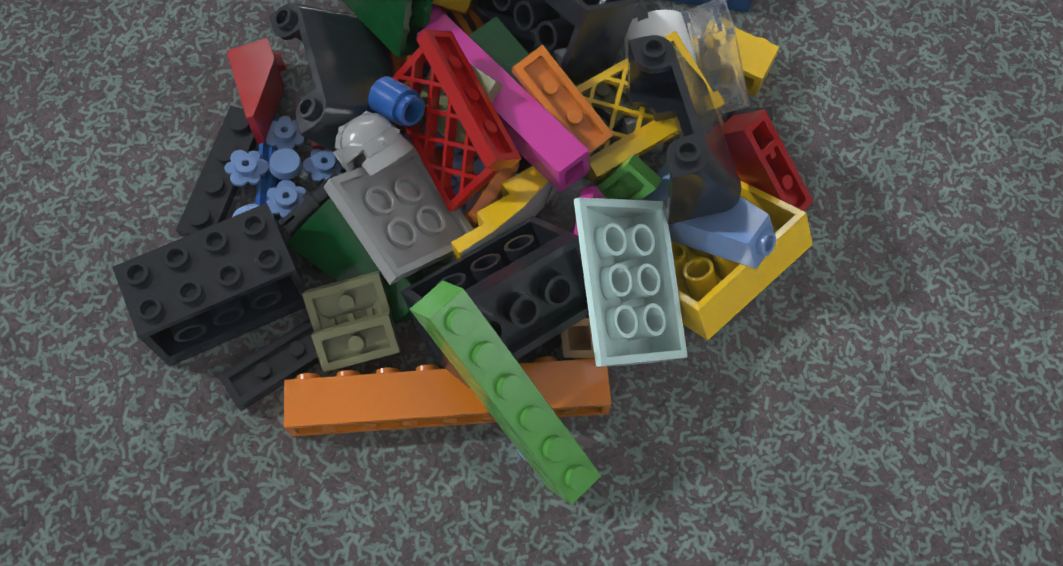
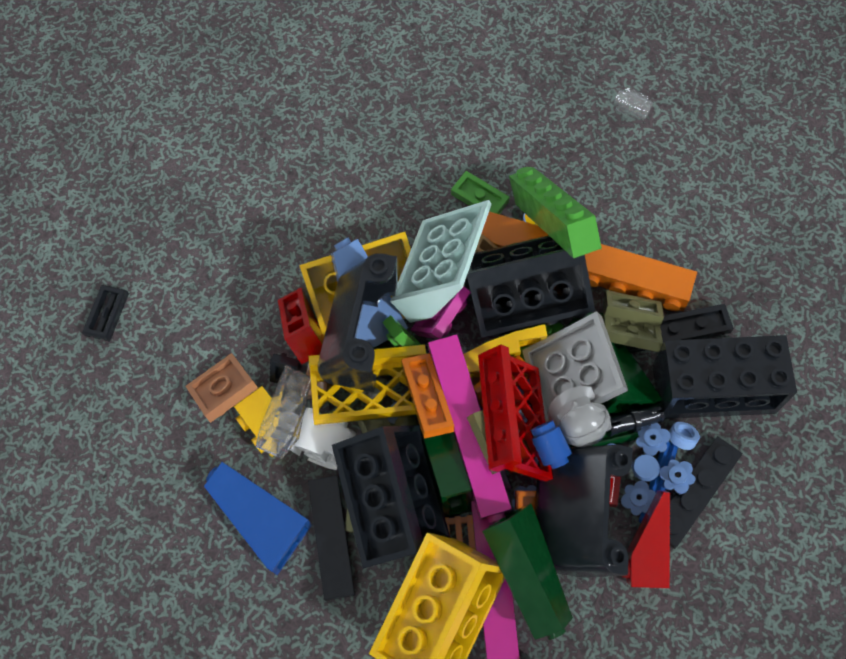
camera: 150 degrees left, 0 degrees up
(630, 442) = (474, 190): none -> bright green plate
(808, 67) = (221, 387): none -> nougat plate
(996, 108) = (114, 317): none -> black tile

